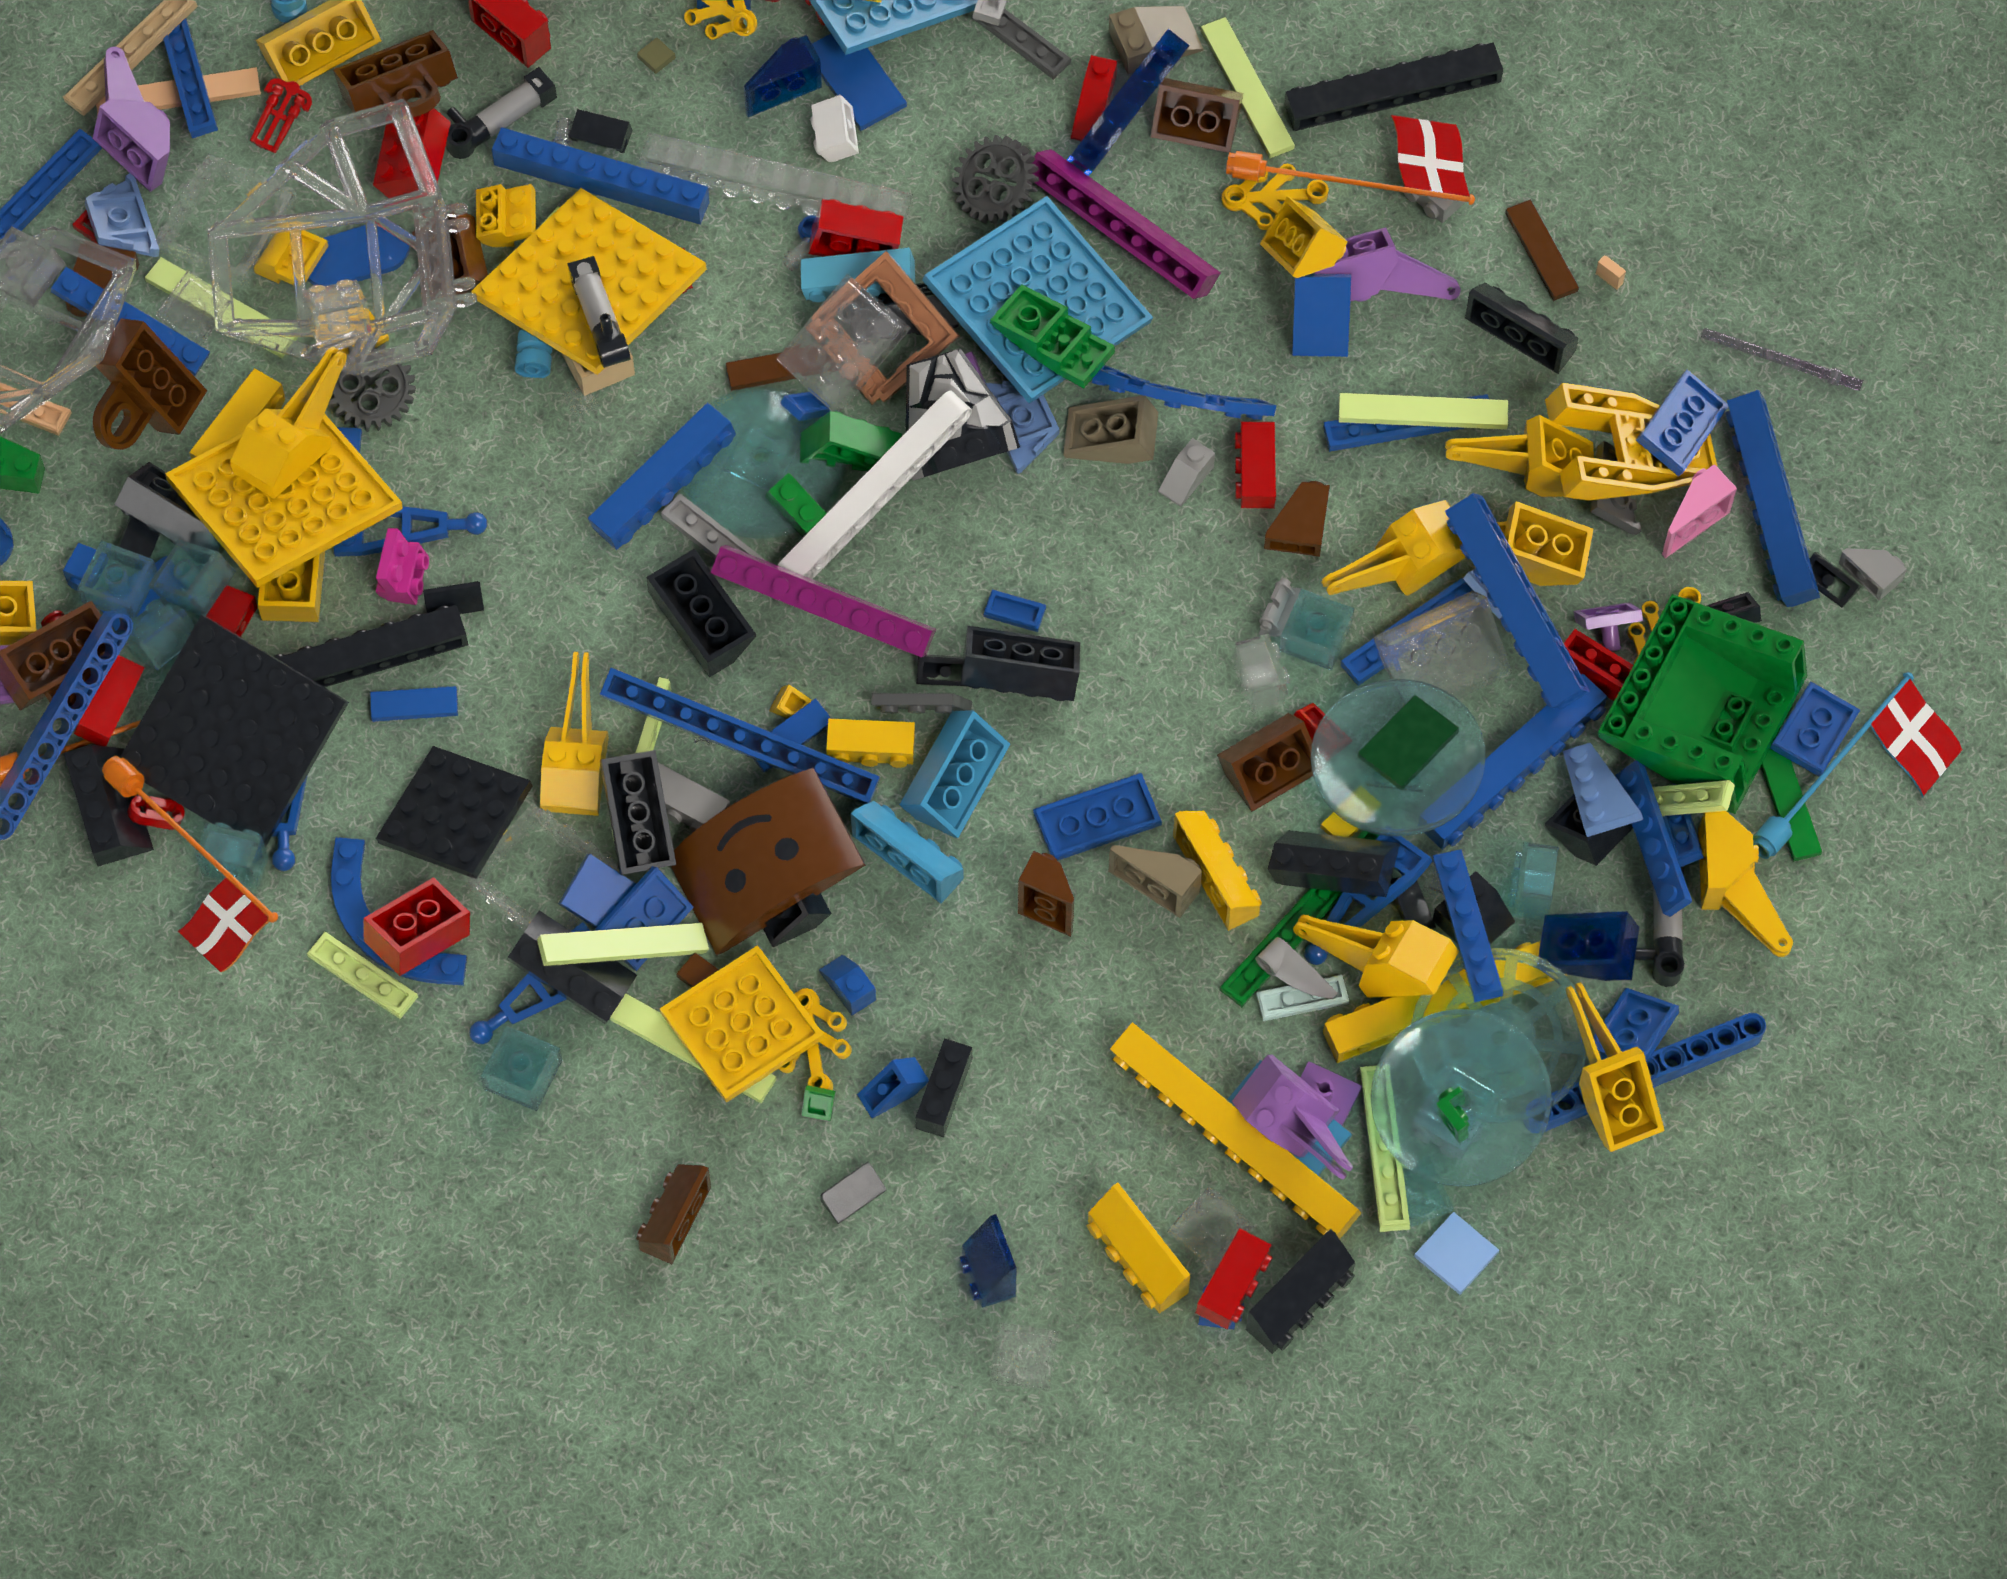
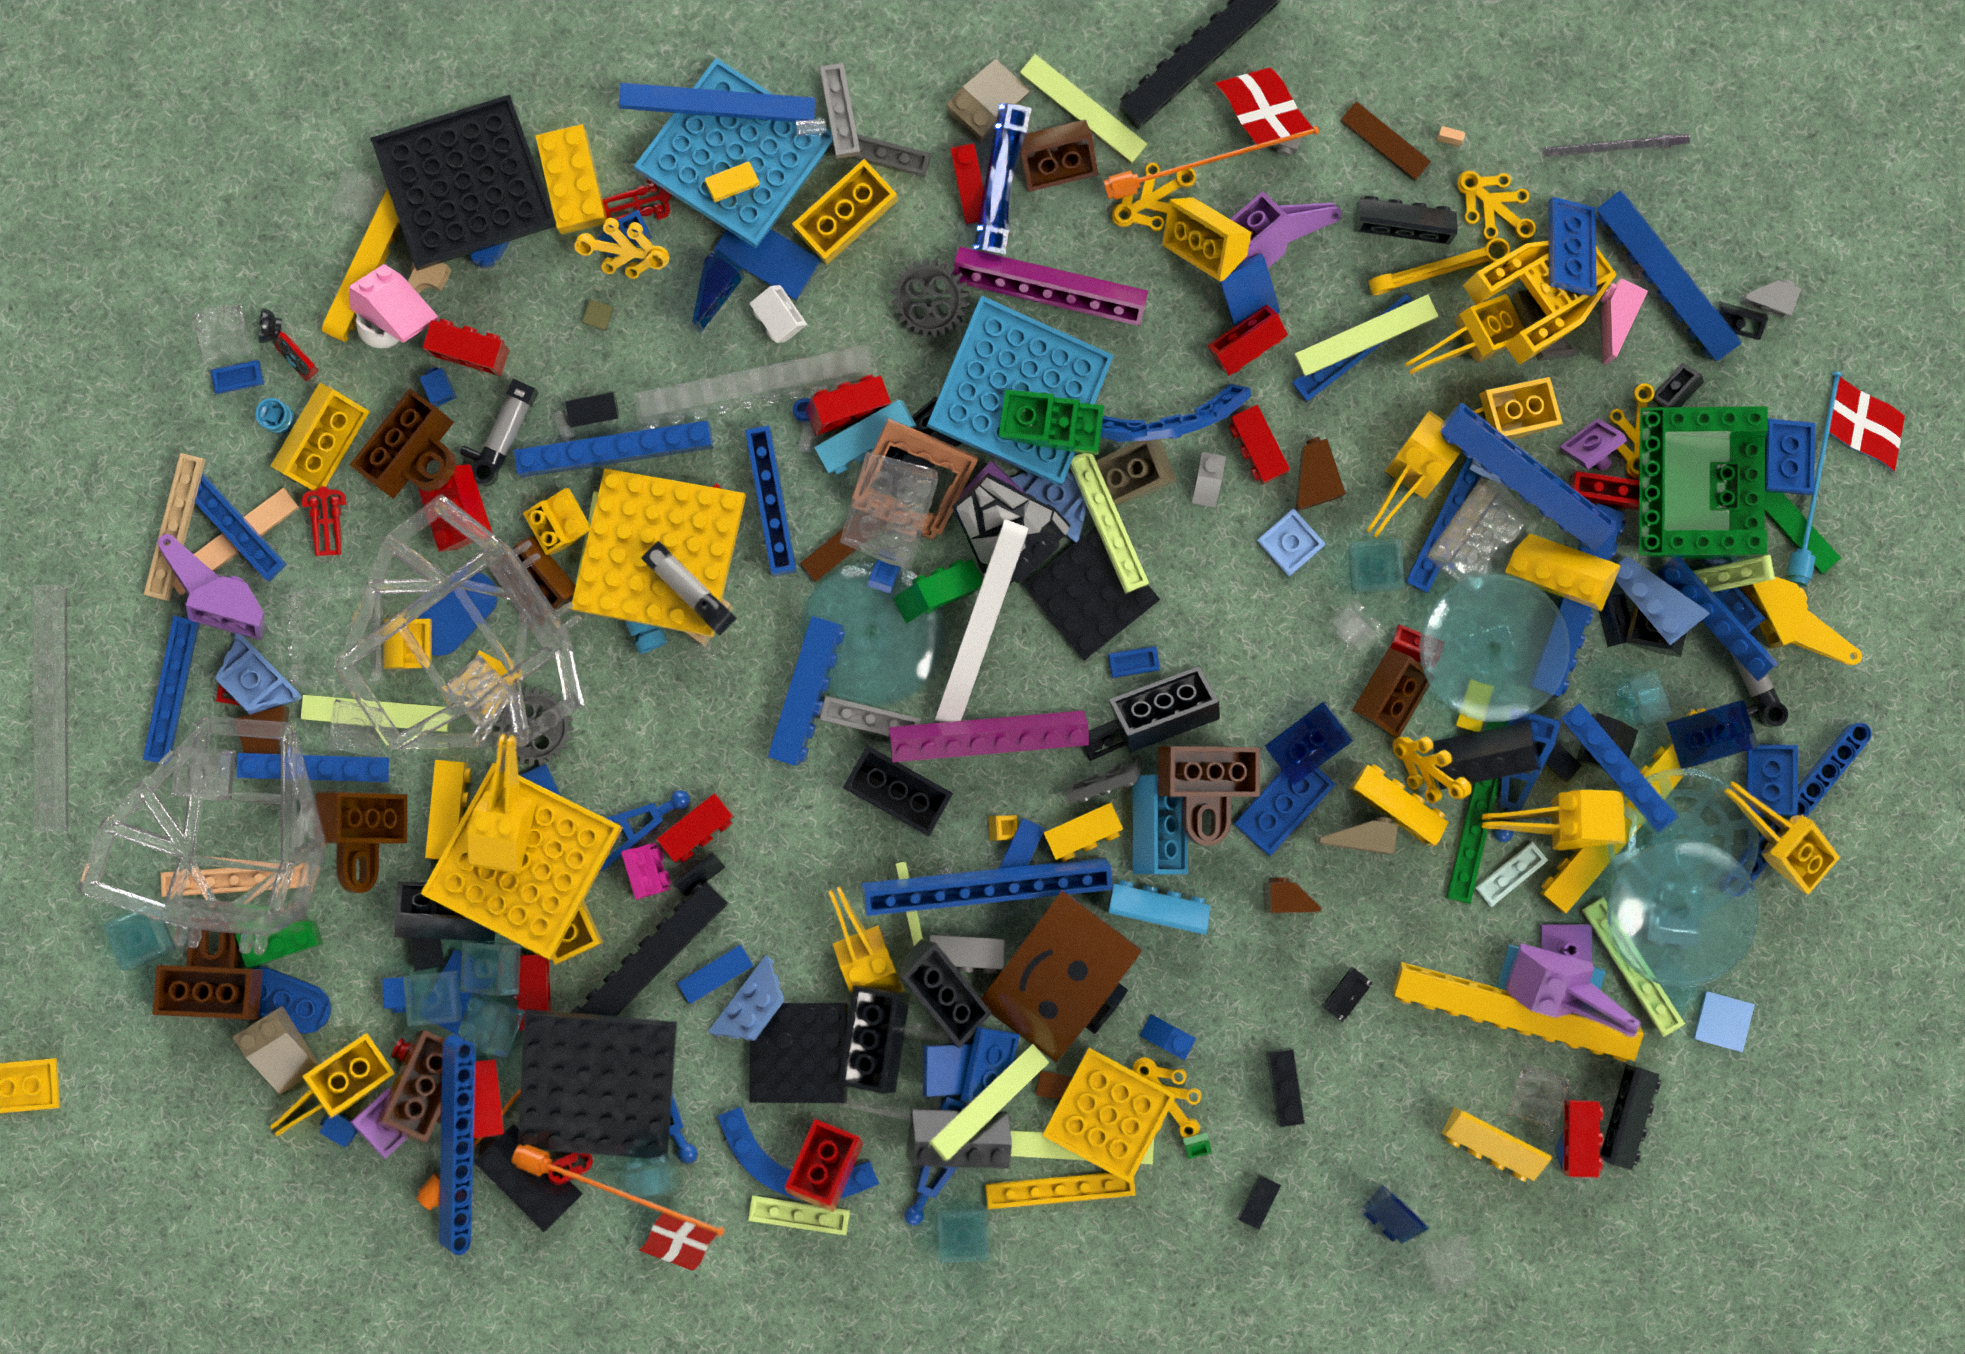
camera: 25 degrees left, 20 degrees up
(433, 745) = (752, 1005): none -> medium blue wing
(462, 45) = (438, 386): none -> blue brick
(475, 555) = (696, 829): none -> red brick
(540, 824) = (874, 1039): none -> black slope
(648, 1080) = (1057, 1190): none -> yellow tile
(674, 1211) = (1137, 1289): reddish brown slope -> none
(729, 290) = (771, 501): none -> blue brick
(795, 504) = (924, 665): green brick -> none
(893, 1085) = (1246, 1104): blue slope -> none
(954, 68) = (845, 212): none -> yellow brick
(1007, 526) = (1086, 596): none -> black plate
(1026, 743) = (1208, 781): none -> reddish brown brick
(1060, 463) = (1108, 522): none -> yellowish green tile
(1061, 1030) = (1347, 994): none -> black hinge
(1156, 764) = (1309, 742): none -> clear blue slope
(1241, 573) = (1291, 542): none -> light blue tile
(1253, 824) = (1406, 750): none -> yellow plant
(1279, 610) = (1338, 561): light grey hinge -> none
(1285, 963) = (1497, 861): light grey piece -> none
(1298, 363) = (1247, 340): none -> red brick
(1408, 742) = (1499, 635): dark green tile -> none
(1452, 1114) = (1686, 936): green bracket -> none
(1470, 376) = (1388, 282): none -> yellow piece
(1511, 719) = (1563, 571): none -> yellow slope
(1547, 797) = (1615, 620): none -> black slope
(1624, 354) = (1493, 202): none -> yellow plant

